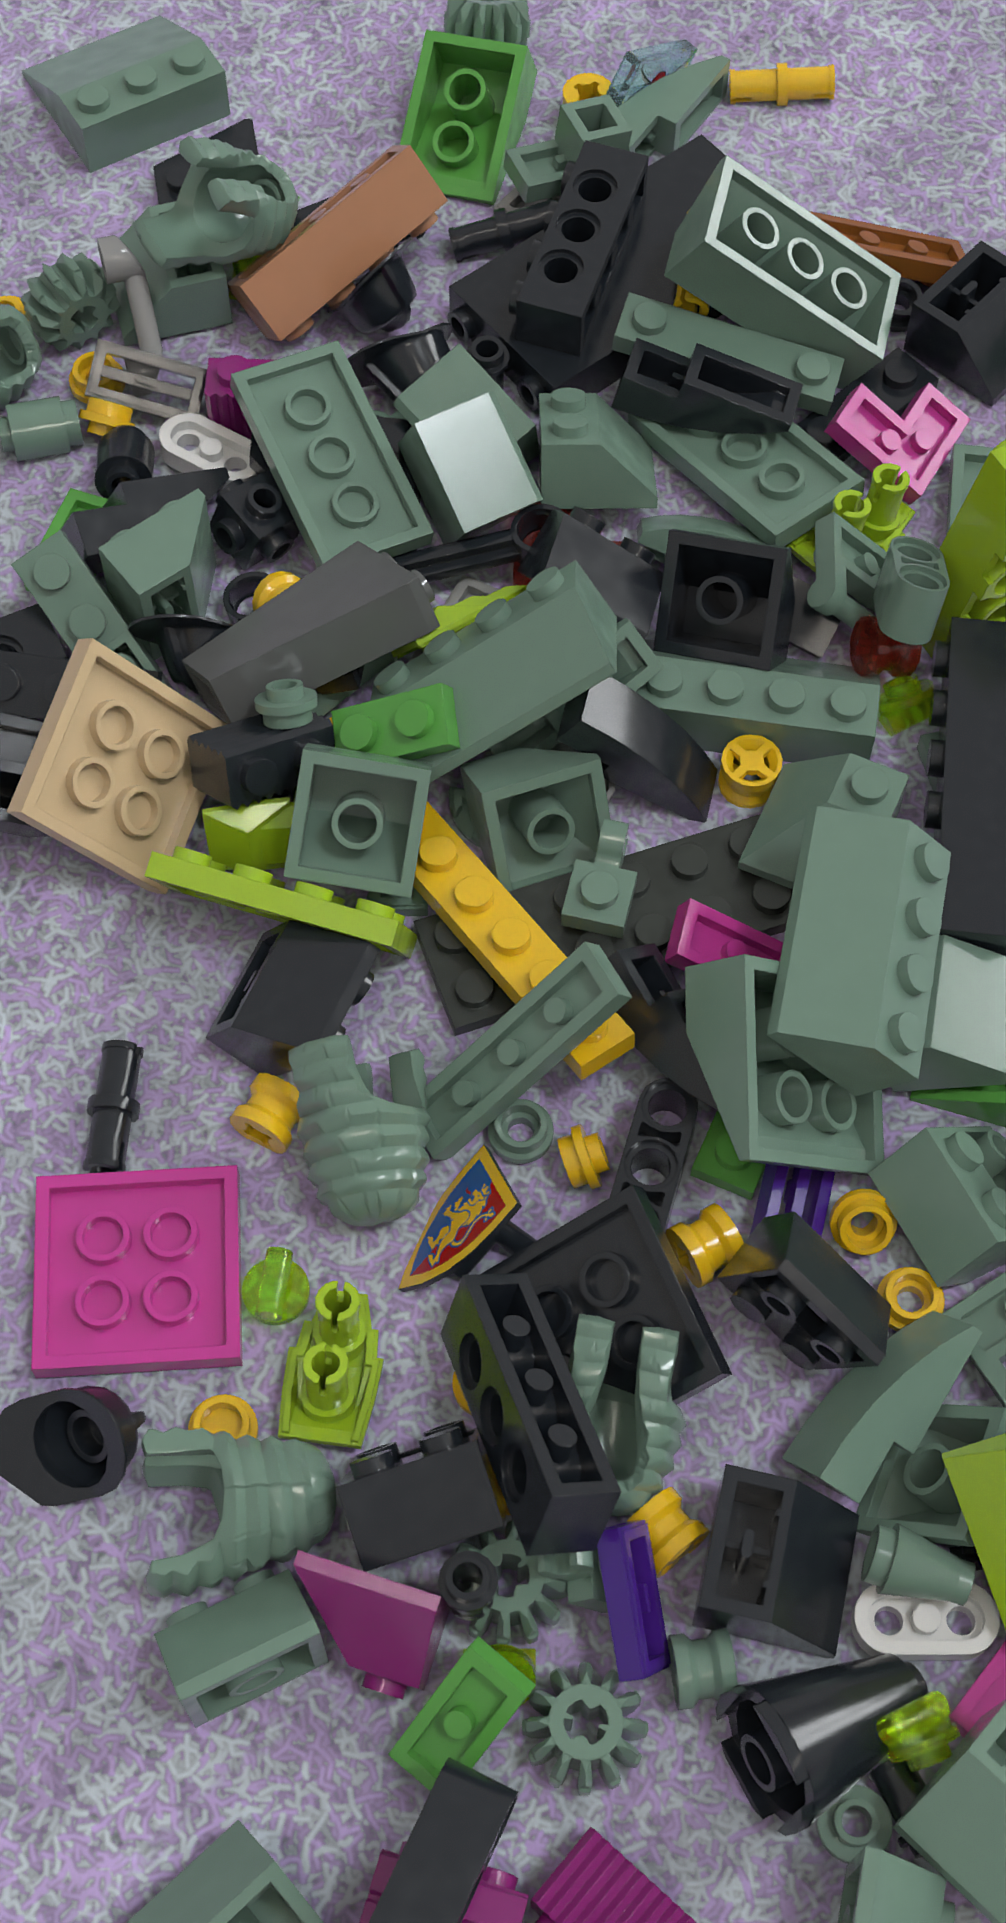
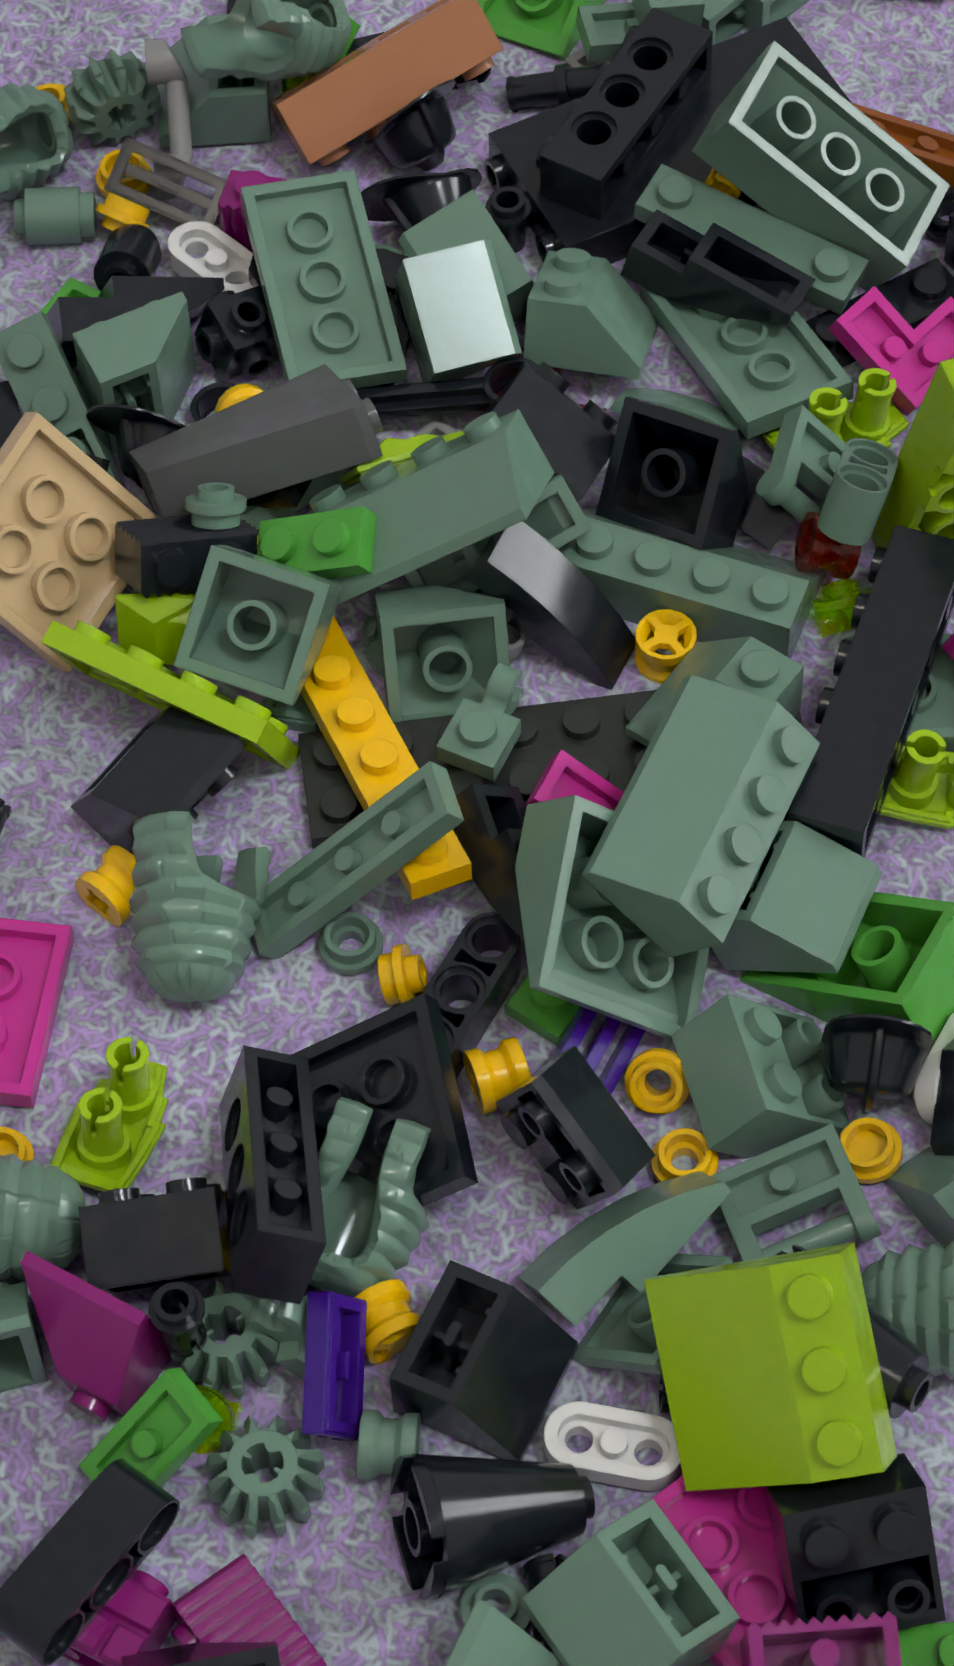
camera: 15 degrees right, 5 degrees down
(276, 1288) = (80, 1043): clear neon green plate -> none
(466, 1225) = (274, 1016): shield -> none
(914, 1567) = (609, 1388): sand green cone -> none
(919, 1731) = (565, 1525): clear neon green plate -> none

